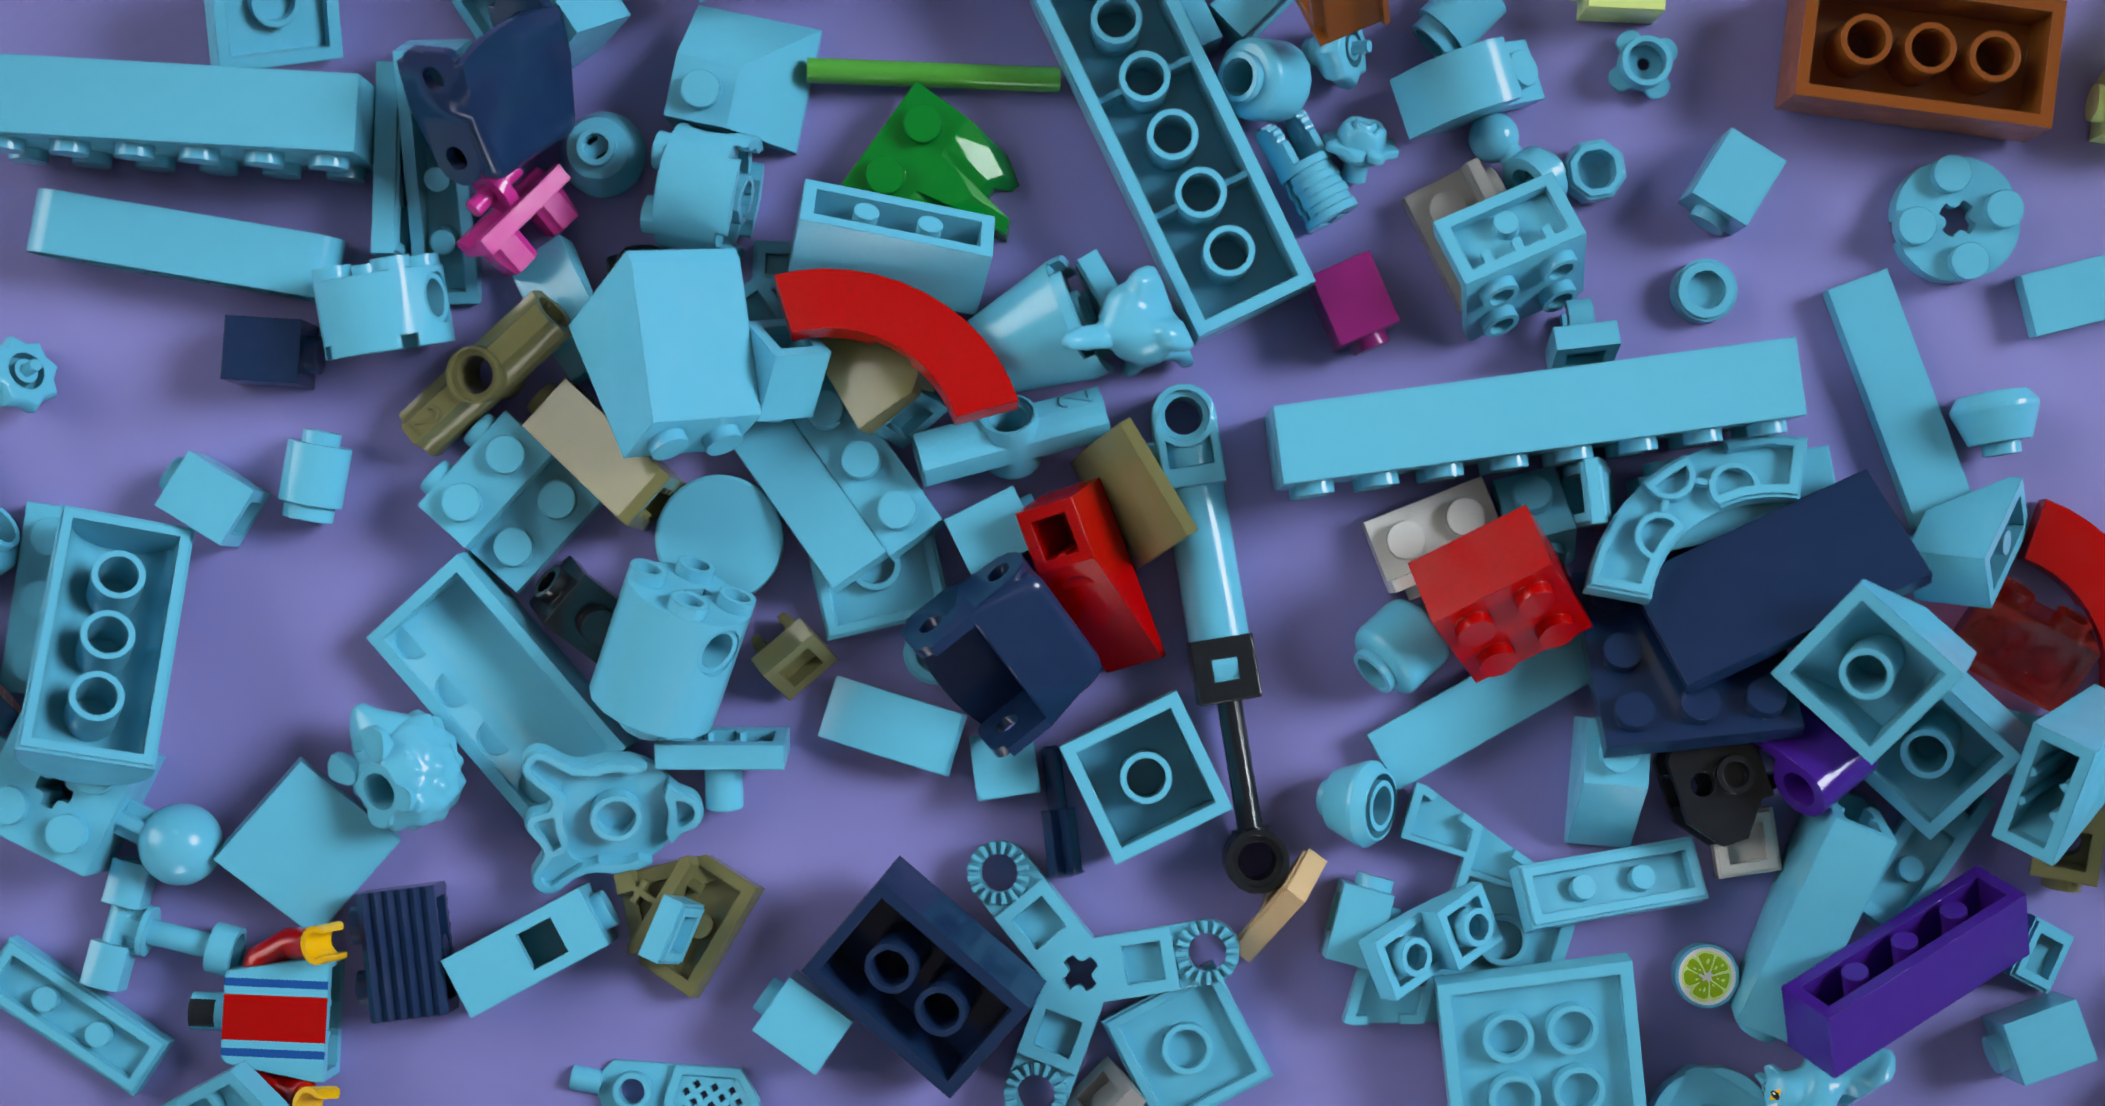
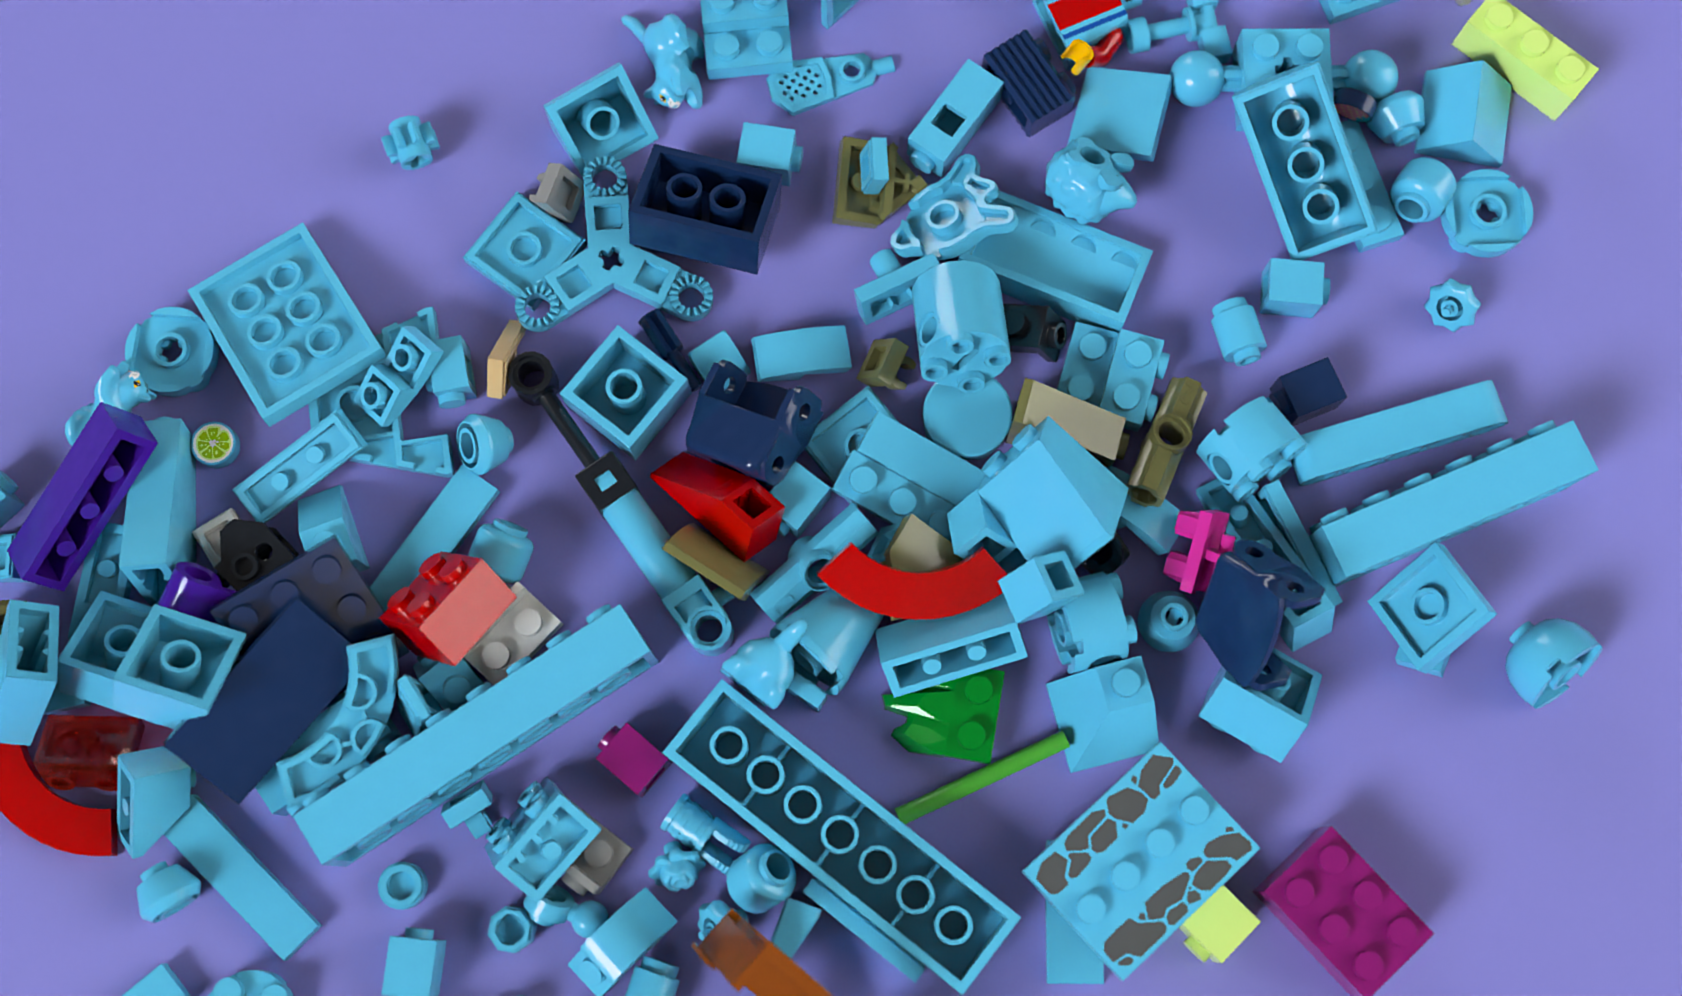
camera: 155 degrees right, 10 degrees down
(746, 242) = (1040, 586): none -> medium azure brick

